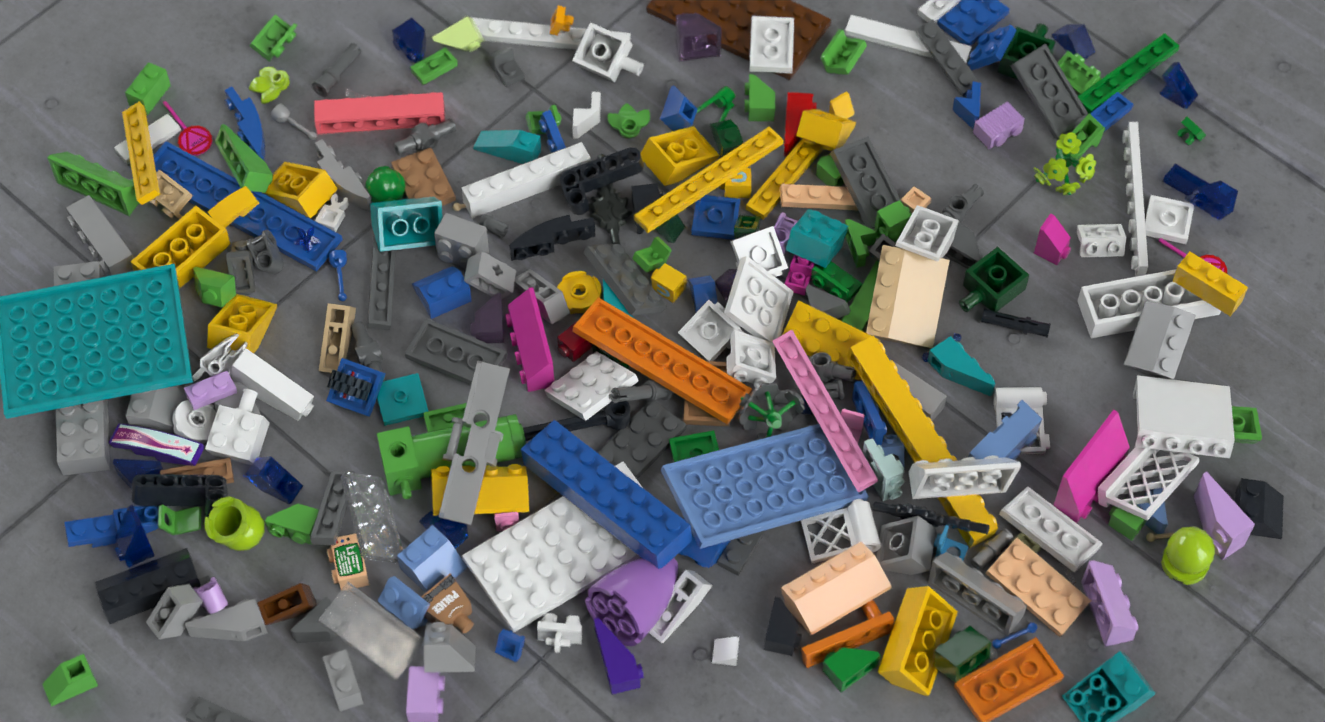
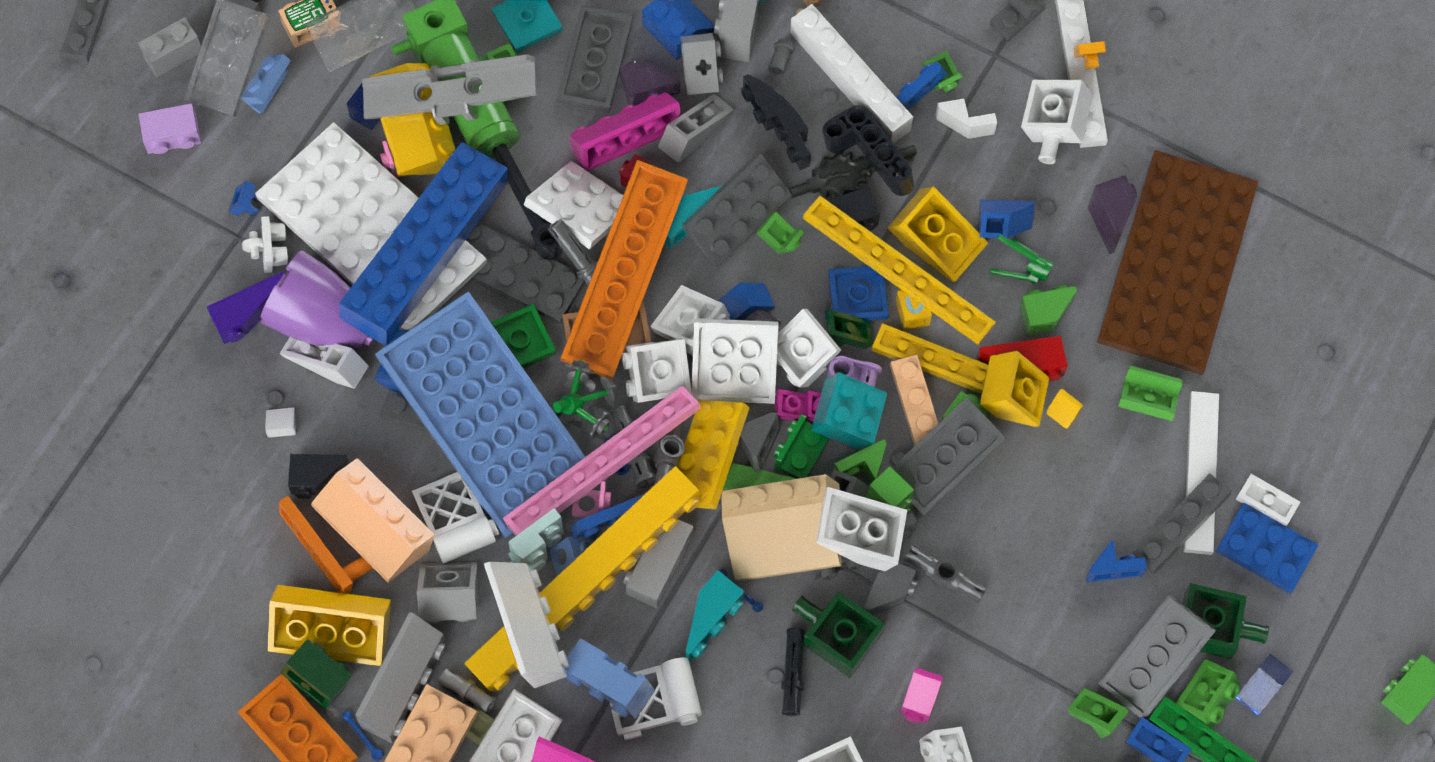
camera: 75 degrees right, 10 degrees up
(430, 559) = (324, 95): medium blue slope -> none
(447, 649) = (216, 135): light grey slope -> none
(449, 605) = (277, 126): medium nougat torso -> none
(510, 145) = (898, 46): teal slope -> none
(584, 282) = (716, 154): yellow plate -> none
(629, 119) = (979, 169): bright green plate -> none
(668, 282) = (747, 260): yellow brick -> none
(671, 228) = (826, 249): clear green tile -> none
(726, 136) = (977, 280): dark green slope -> none
(771, 44) = (1130, 303): white plate -> none
(849, 666) = (281, 552): green slope -> none
(914, 198) = (944, 522): light nougat plate -> none
(936, 520) = (484, 610): black piece -> none
(943, 544) = (462, 632): dark azure bracket -> none
(991, 47) = (1210, 573): blue plate -> none
(999, 125) = (1091, 605): lavender brick -> none
(1058, 167) = (1052, 687): lime plant -> none

